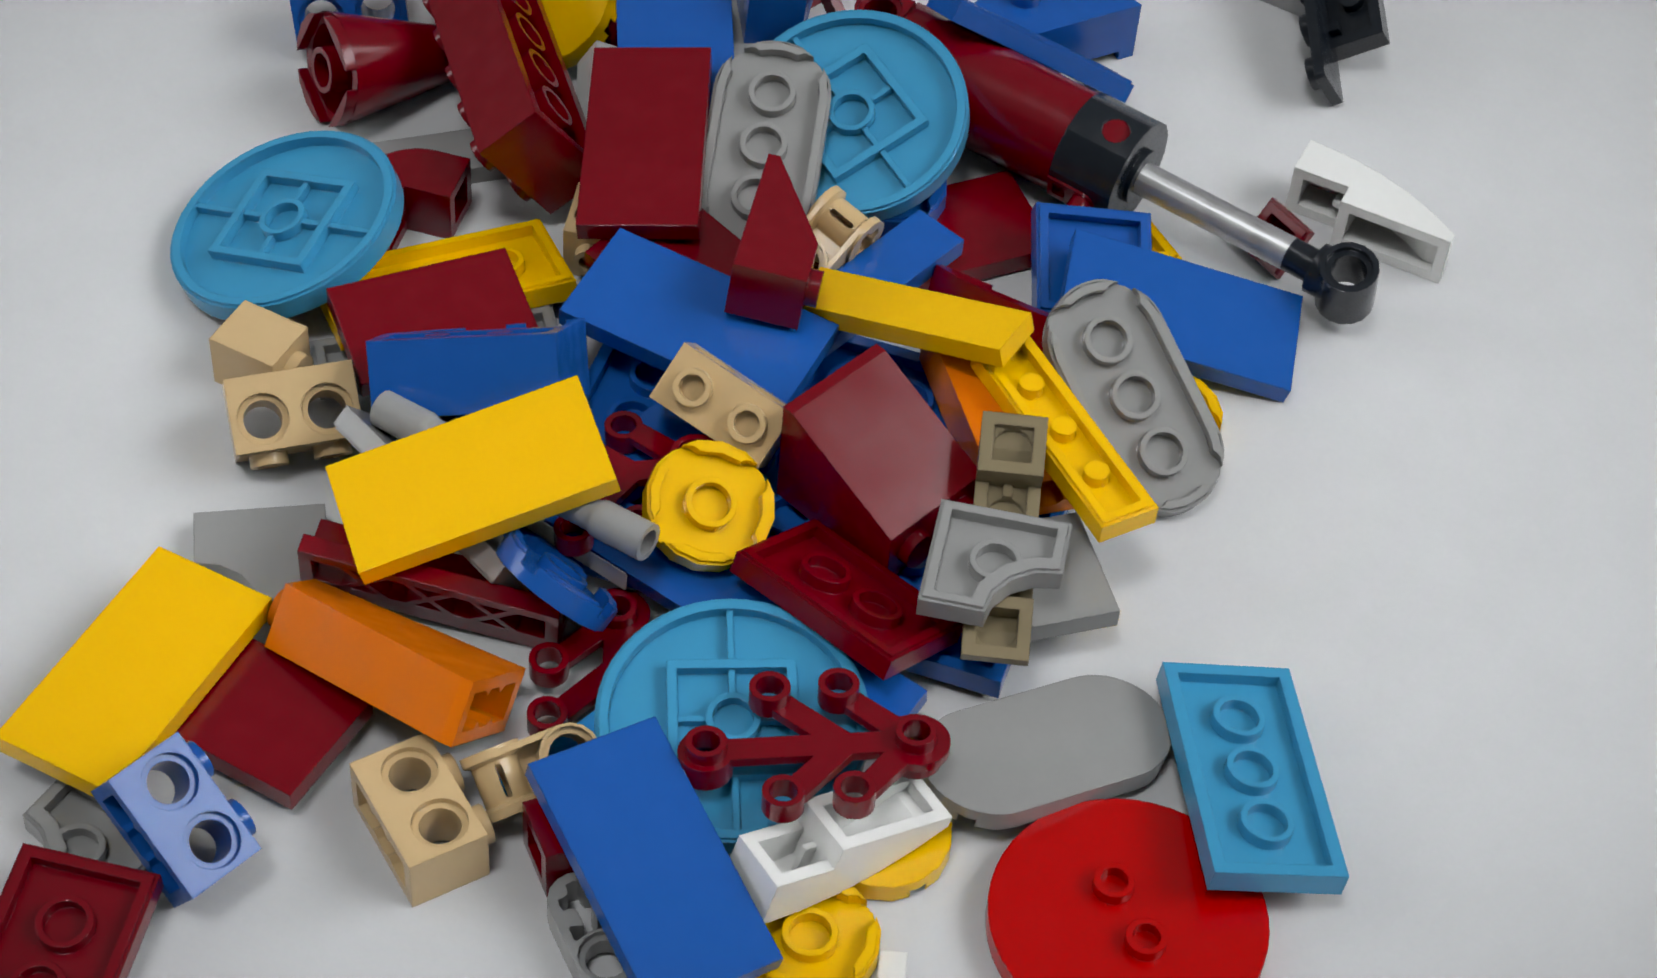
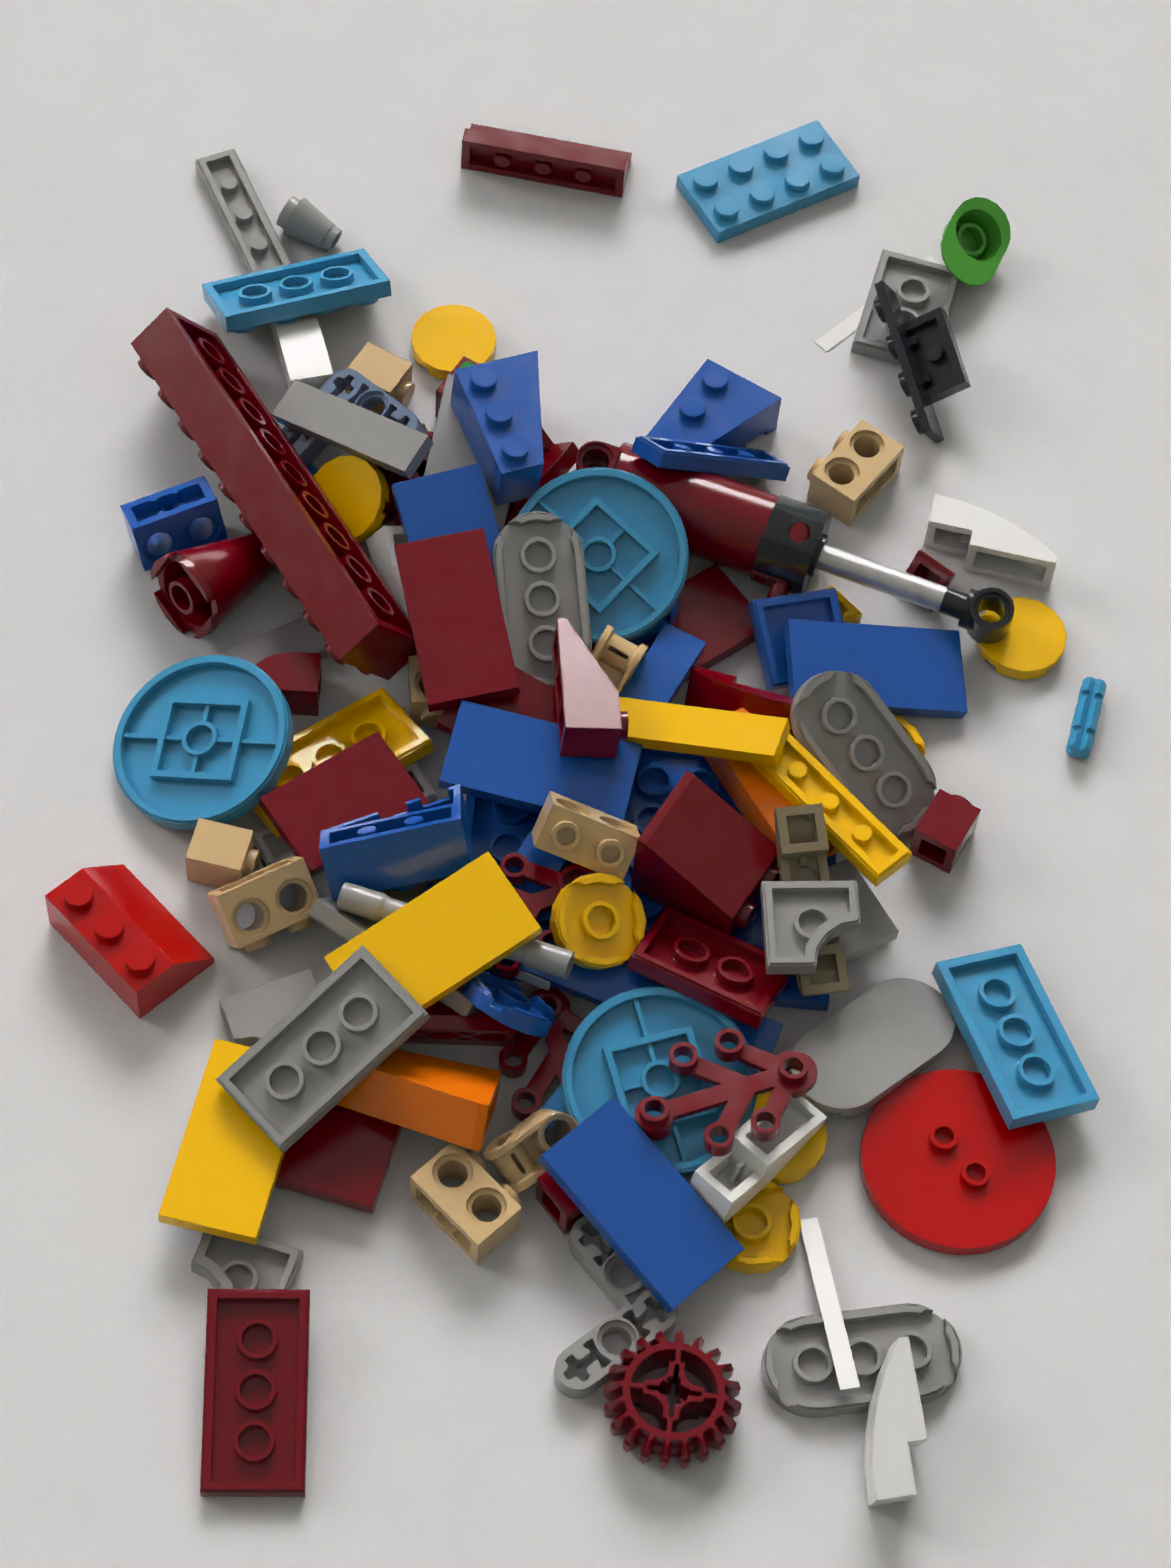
camera: 15 degrees left, 10 degrees up
(105, 417) = (126, 935): none -> red slope
(162, 831) = (302, 1258): brick -> none
(283, 575) = (323, 1048): none -> light grey tile
(1218, 108) = (862, 464): none -> tan brick
(1220, 516) = (944, 830): none -> dark red brick
(1397, 335) = (1032, 644): none -> yellow tile
(1450, 430) = (1086, 718): none -> dark azure axle

